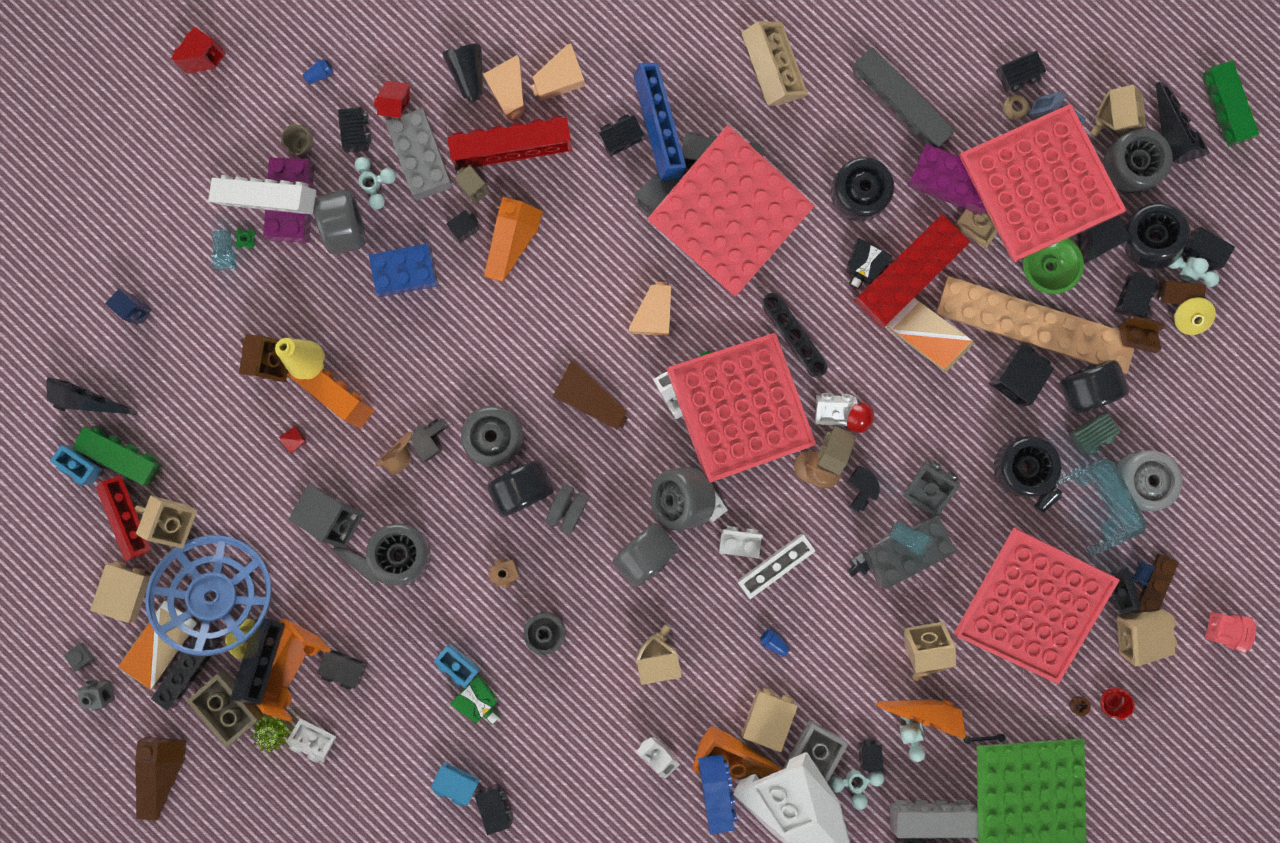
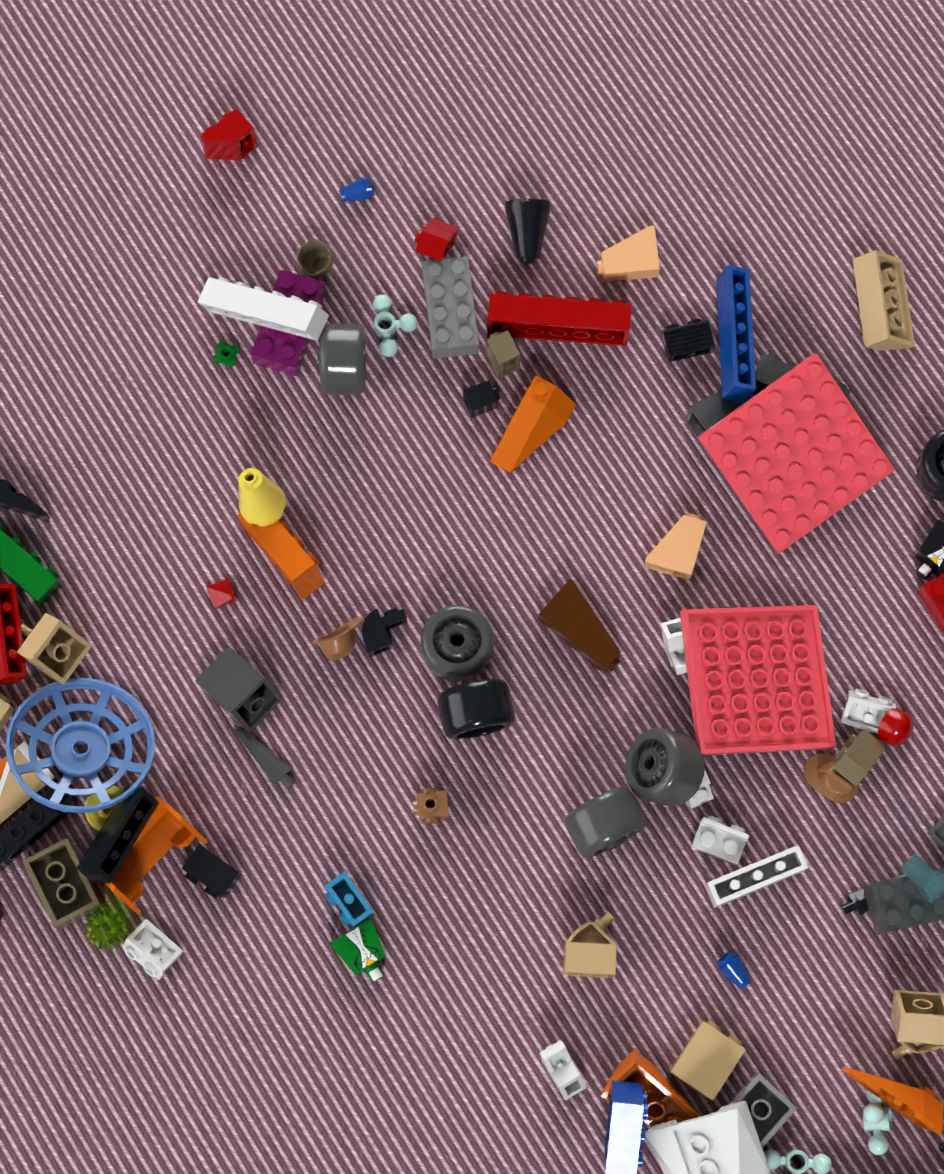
camera: 15 degrees right, 10 degrees down
(128, 307) = (76, 397): dark blue brick -> none
(222, 256) = (196, 366): clear light blue piece -> none
(260, 359) = (214, 490): reddish brown piece -> none
(354, 129) = (382, 262): black brick -> none
(382, 554) = (313, 734): dark grey wheel -> none
(403, 270) = (400, 431): blue brick -> none
(454, 784) = (310, 1042): dark azure brick -> none
(493, 809) = (350, 1085): black brick -> none
(507, 87) = (568, 257): light nougat slope -> none
(533, 637) = (464, 874): dark grey brick -> none
(565, 508) = (521, 745): dark grey wheel -> none
(793, 325) = (837, 625): black beam -> none
(867, 486) = (885, 807): black brick -> none
(870, 754) = (821, 1133): black brick -> none

